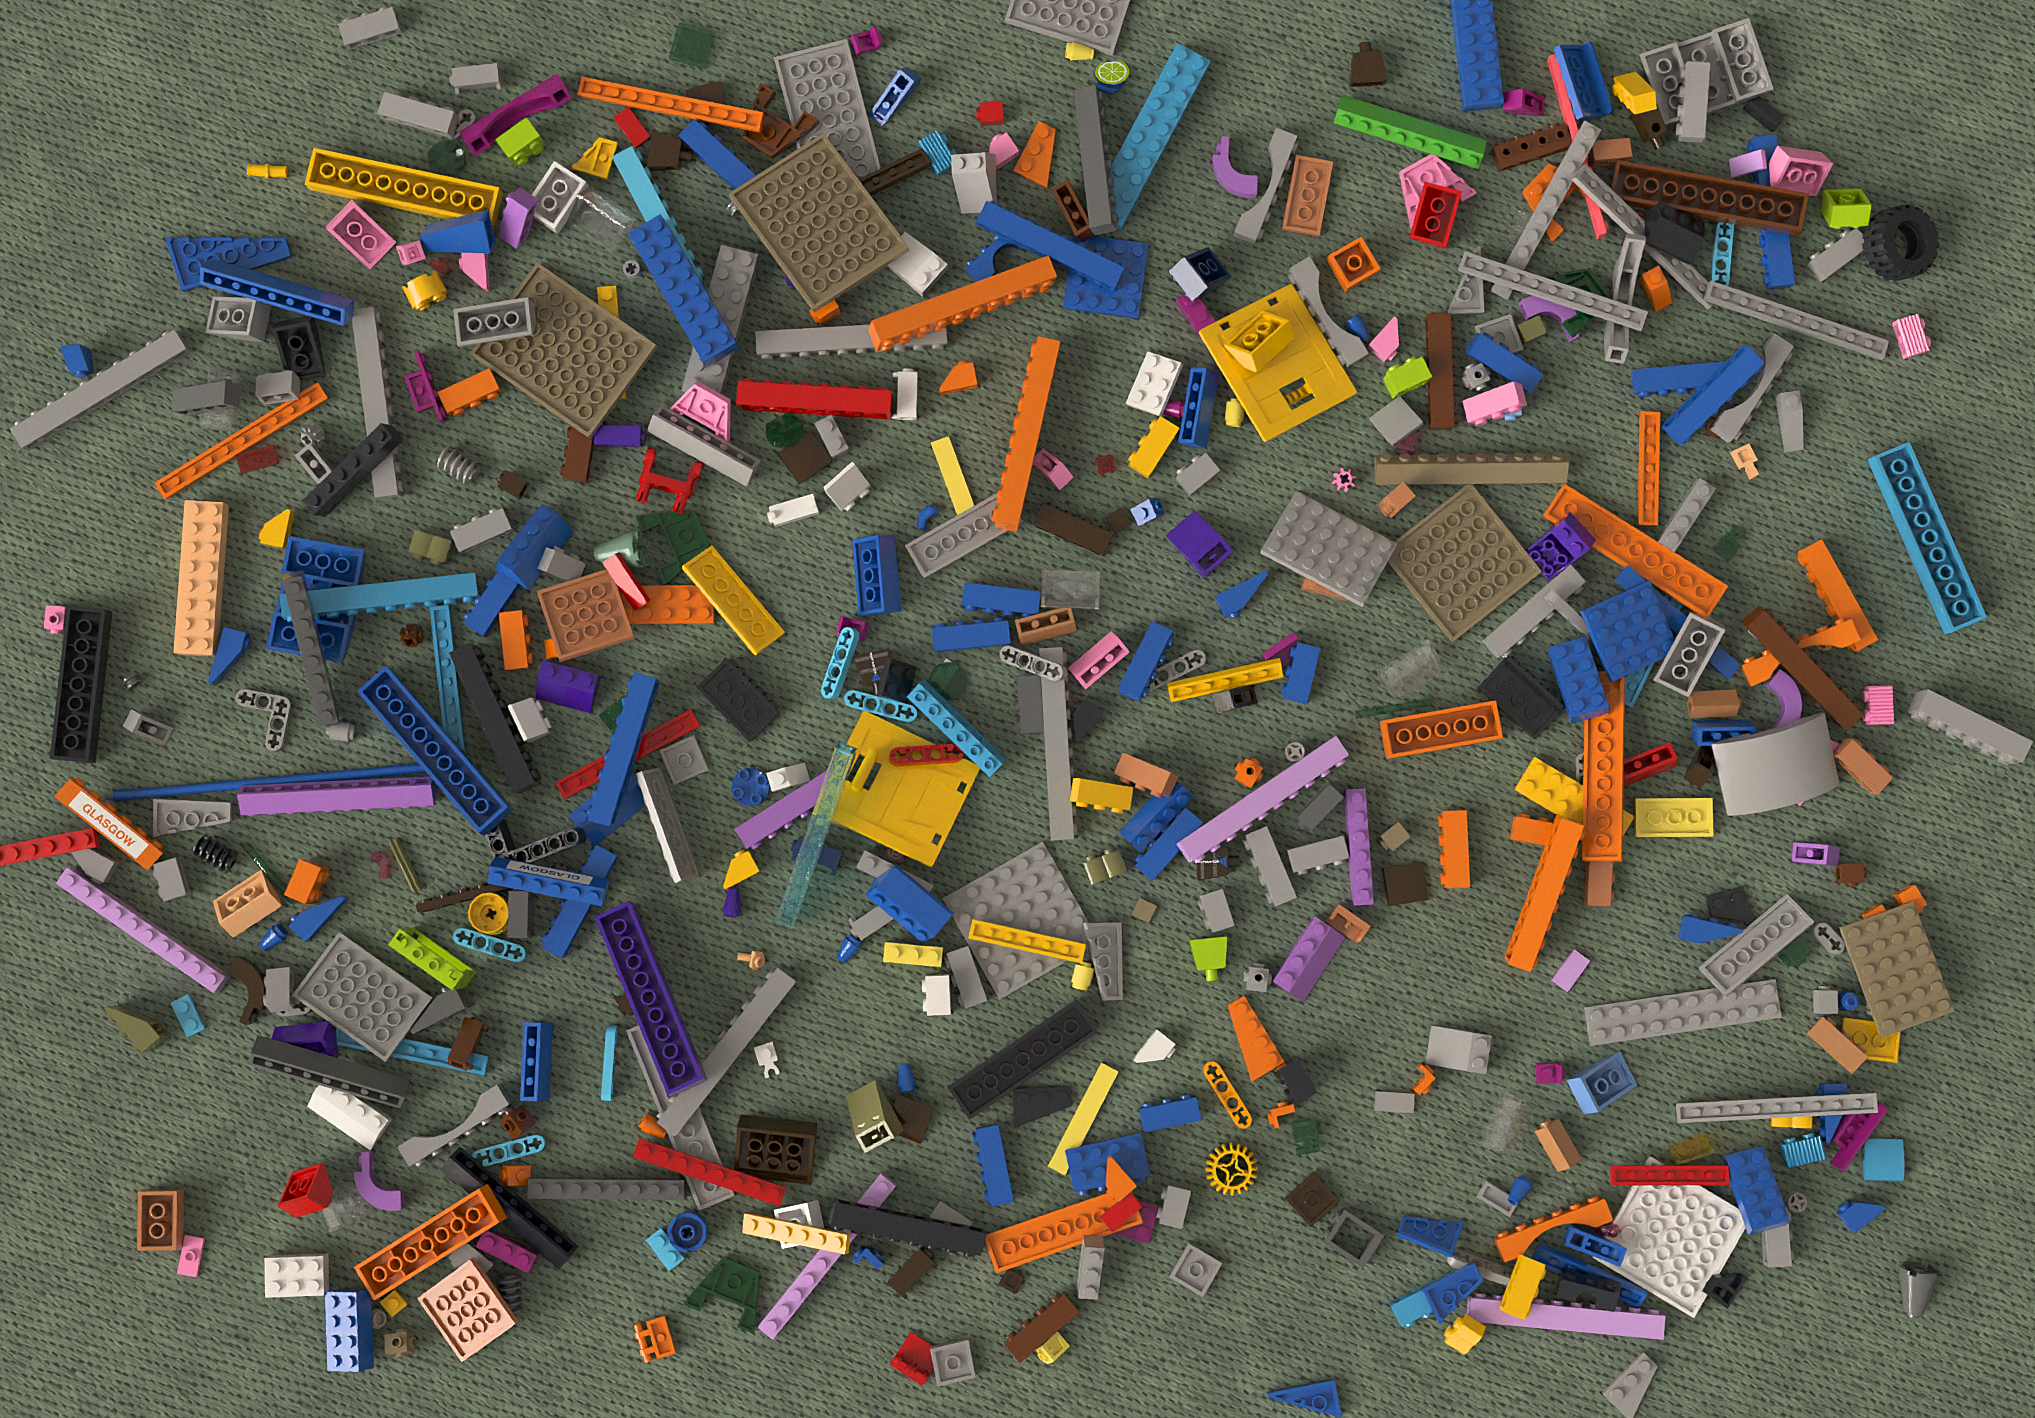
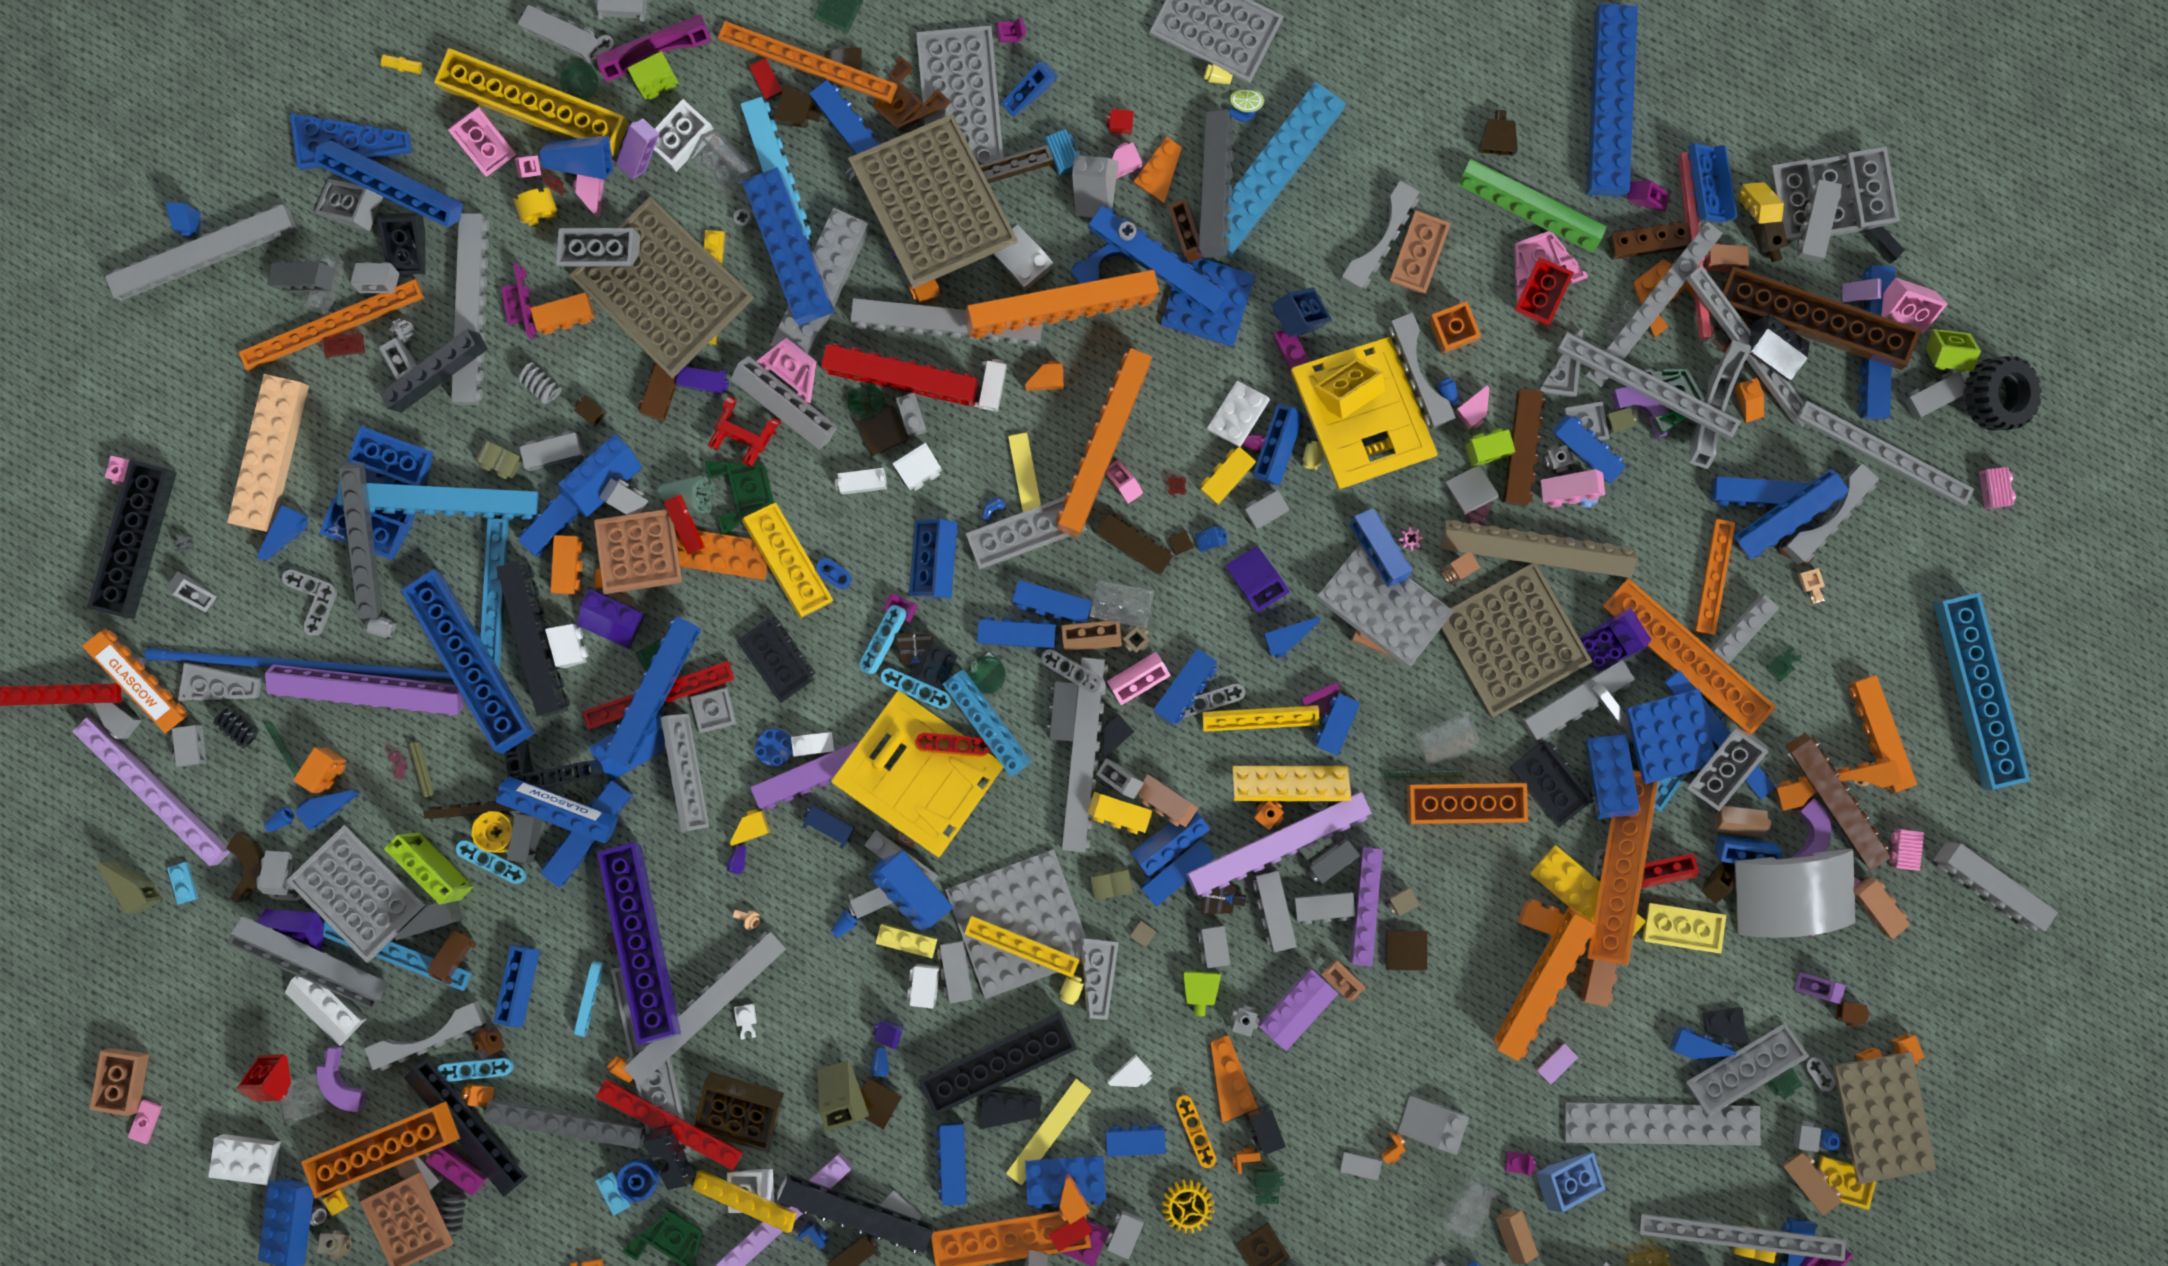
camera: 10 degrees right, 0 degrees up
(246, 904) = (258, 782): light nougat slope -> none
(277, 530) = (351, 417): yellow slope -> none
(411, 635) = (465, 543): reddish brown gear -> none
(598, 159) = (727, 105): yellow wing -> none
(709, 1191) = (664, 1144): none -> black arch
(781, 606) = (834, 573): none -> blue plate
(816, 835) = (829, 807): clear light blue brick -> none
(909, 1047) = (888, 1033): none -> dark purple slope
(1020, 225) = (1132, 227): none -> light grey bush
(1095, 626) = (1140, 644): none -> dark tan brick
(1096, 761) = (1120, 778): none -> light grey brick
(1232, 181) = (1350, 228): medium lavender arch -> none
(1234, 699) = (1267, 738): dark brown slope -> none
(1265, 738) = (1291, 783): none -> yellow plate
(1315, 493) = (1380, 547): none -> brick
(1455, 849) = (1461, 924): orange brick -> none
(1722, 255) = (1824, 379): medium azure beam -> none
(1790, 420) = (1863, 551): light grey slope -> none

